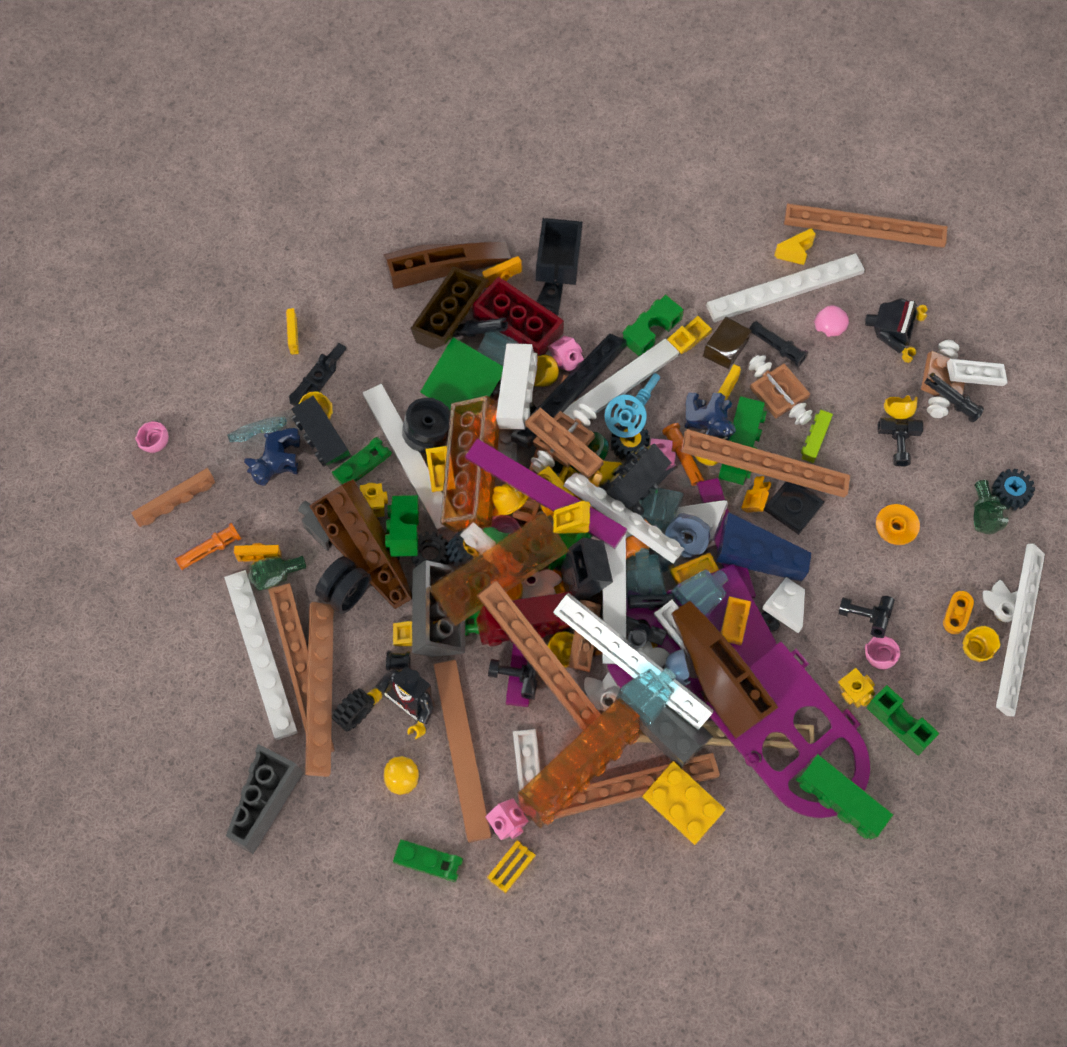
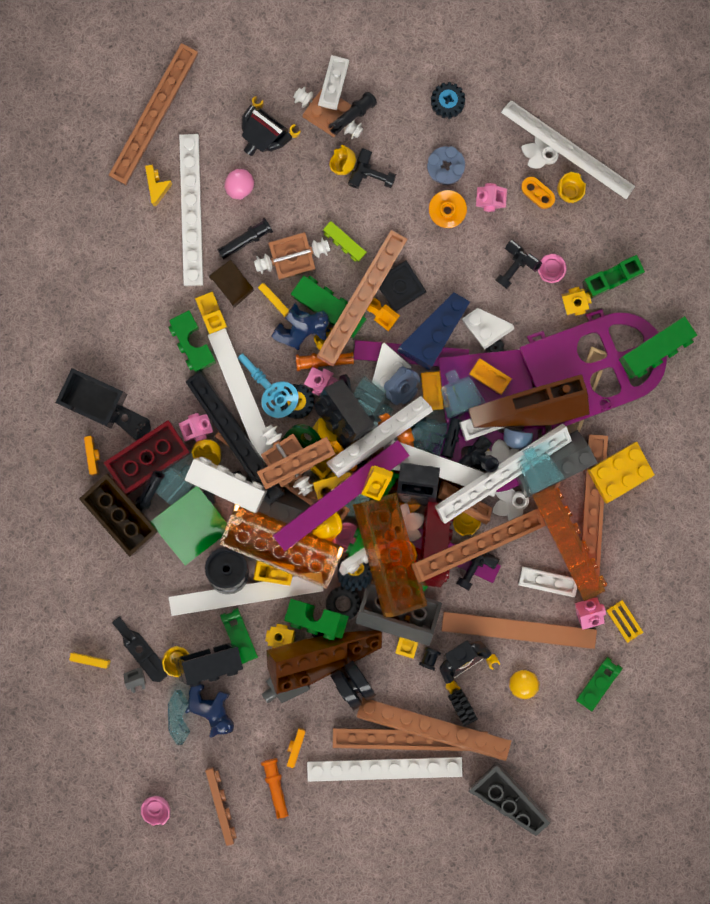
camera: 70 degrees left, 20 degrees up
(273, 570) = (318, 739): clear green piece -> none
(286, 377) = (134, 678): none -> dark grey tile
(436, 260) = (58, 508): reddish brown wedge -> none
(930, 562) = (487, 197): none -> bright pink brick
(943, 498) = (456, 168): none -> sand blue plate
(988, 510) = (461, 130): clear green piece -> none

